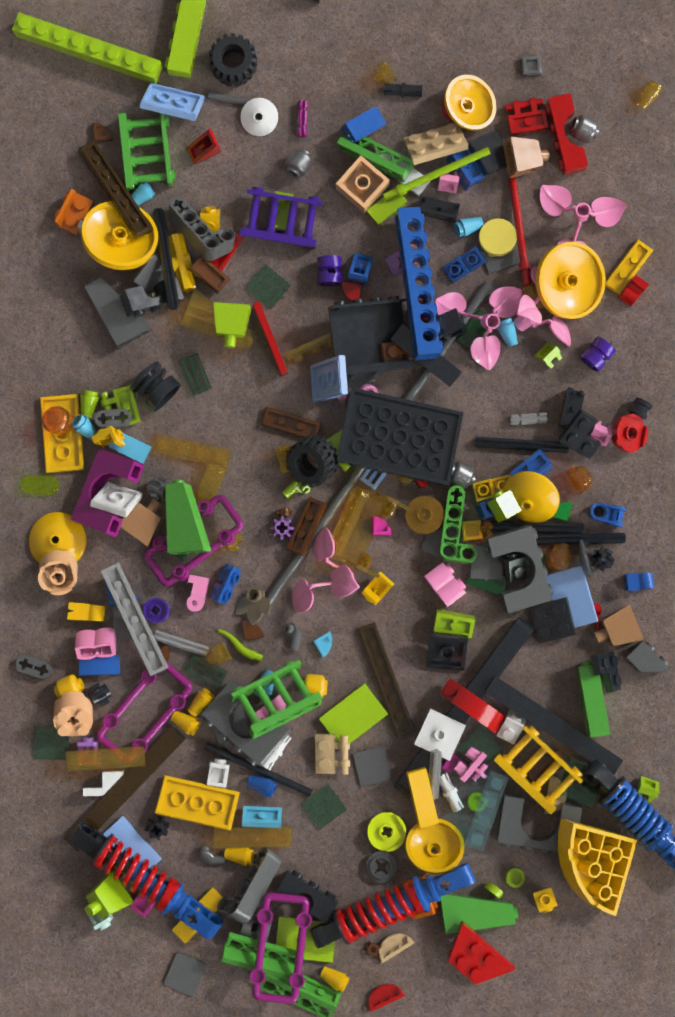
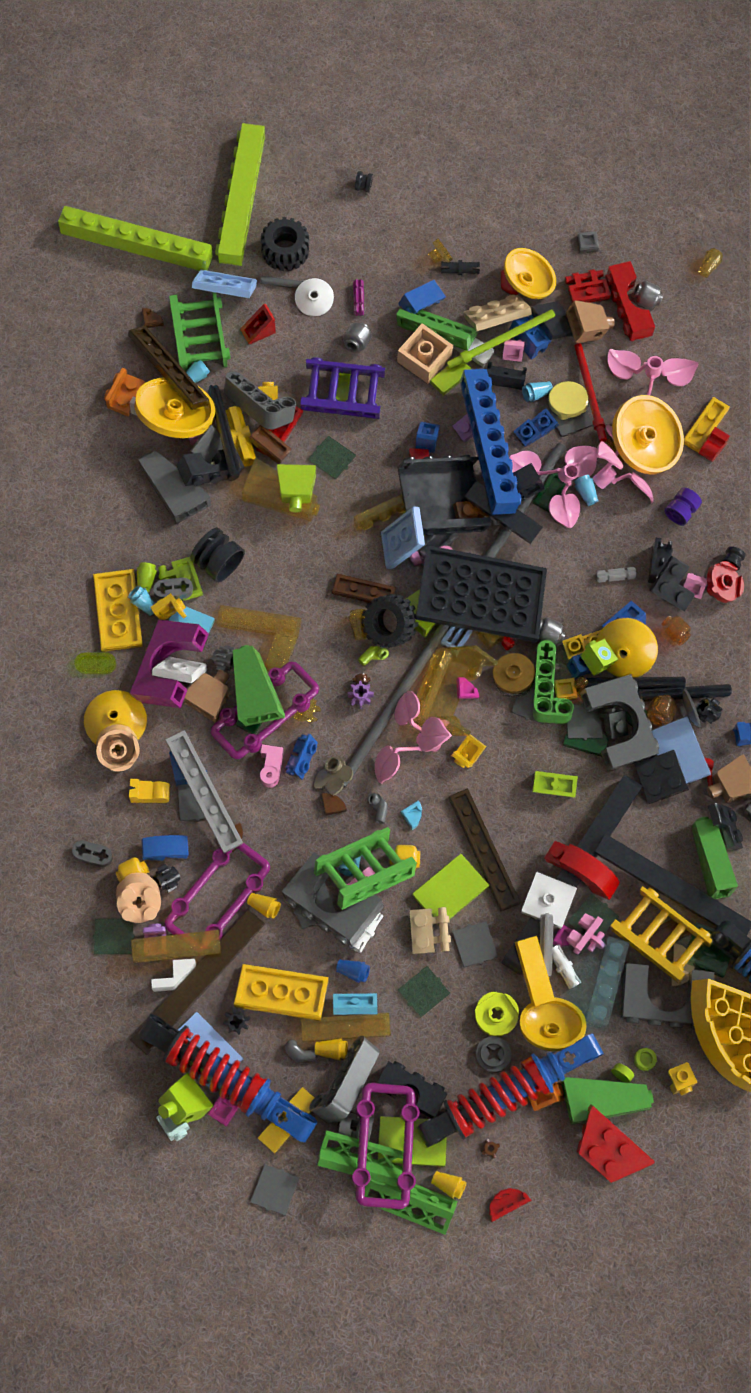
camera: 10 degrees left, 15 degrees down
(57, 420) = (113, 595): clear orange hair -> none
(95, 643) = (166, 822): bright pink brick -> none
(156, 610) = (227, 784): dark purple wheel -> none
(181, 643) = (256, 821): light grey axle -> none
(190, 359) = (253, 530): clear green tile -> none
(201, 702) = (279, 882): yellow cone -> none
(218, 773) = (303, 957): white bracket -> none
(219, 654) = (298, 829): clear yellow tile -> none
(220, 678) = (264, 849): clear green tile -> none
(224, 754) = (308, 937): black bar -> none
(249, 654) = (322, 824): lime animal -> none
(270, 338) = (337, 506): red tile -> none
(306, 526) = (386, 692): reddish brown tile -> none
(327, 264) = (395, 437): dark purple wheel -> none
(393, 945) = (513, 1143): tan tile -> none
(445, 584) = (541, 744): bright pink brick -> none
(446, 651) = (549, 812): black plate -> none
(473, 800) = (591, 975): lime tile -> none
(511, 727) = (626, 893): white bracket -> none
(520, 444) = (594, 600): black axle -> none
(547, 354) = (629, 510): lime tile -> none
(563, 511) = (660, 666): green tile -> none
(611, 514) = (713, 665): blue piece -> none

